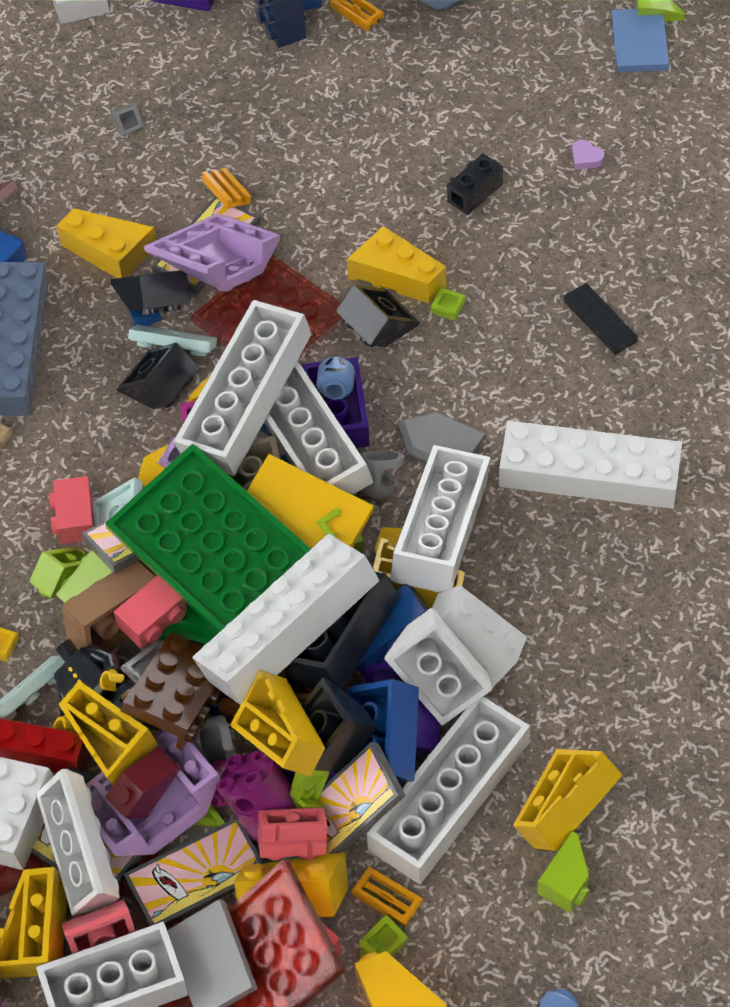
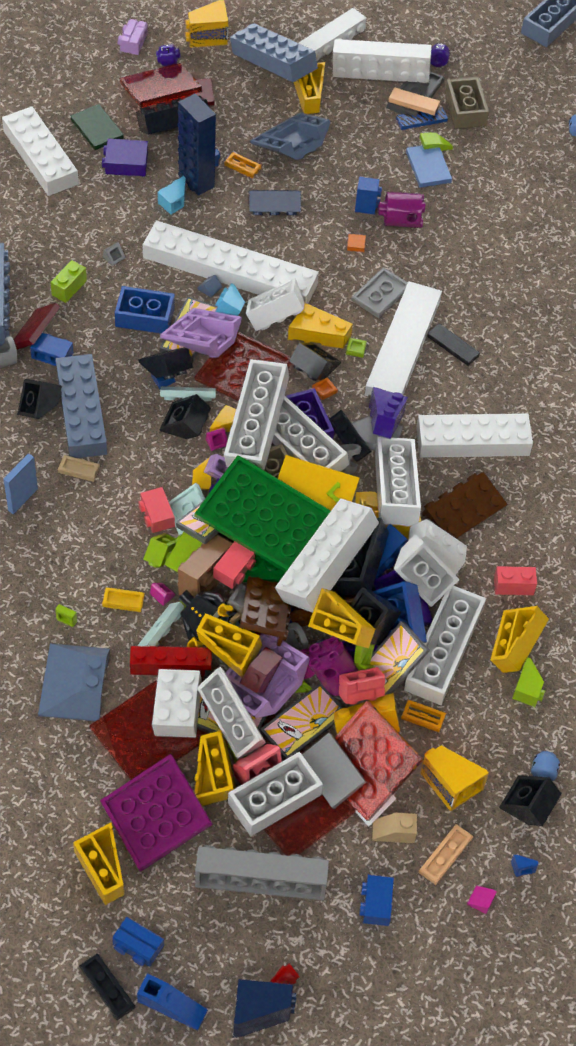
camera: 20 degrees left, 0 degrees up
(44, 636) = (161, 593): none -> dark pink slope
(47, 151) = (68, 281): none -> lime brick
(105, 241) = (125, 335): yellow wedge -> none
(146, 201) = (144, 309): none -> blue brick
(230, 187) = (193, 291): light orange tile -> none
(239, 44) = (173, 195): none -> medium azure slope
(257, 183) = (210, 286): none -> sand blue slope
(274, 211) = (230, 301): none -> medium azure slope
(293, 155) = (229, 262): none -> white brick
(335, 378) = (307, 402): medium blue head -> none
(336, 224) = (275, 305): none -> white slope
(382, 360) = (325, 388): none -> orange tile
(383, 937) = (428, 740): lime slope -> none
(385, 69) = (274, 201): none -> slope
(397, 436) = (348, 434): none -> black tile
(461, 409) = (386, 411): none -> dark purple wedge
(474, 183) = (353, 269): black brick -> none
(494, 144) = (356, 242): none -> orange tile
(510, 225) = (380, 292): none -> light grey tile
(521, 306) = (404, 339): none -> white tile
(527, 75) = (367, 195): none -> blue brick
(545, 574) = (465, 505): none -> reddish brown bracket
(574, 102) = (402, 209): none -> magenta cylinder
(586, 156) = (416, 243): lavender tile -> none
(590, 704) = (515, 580): none -> coral brick

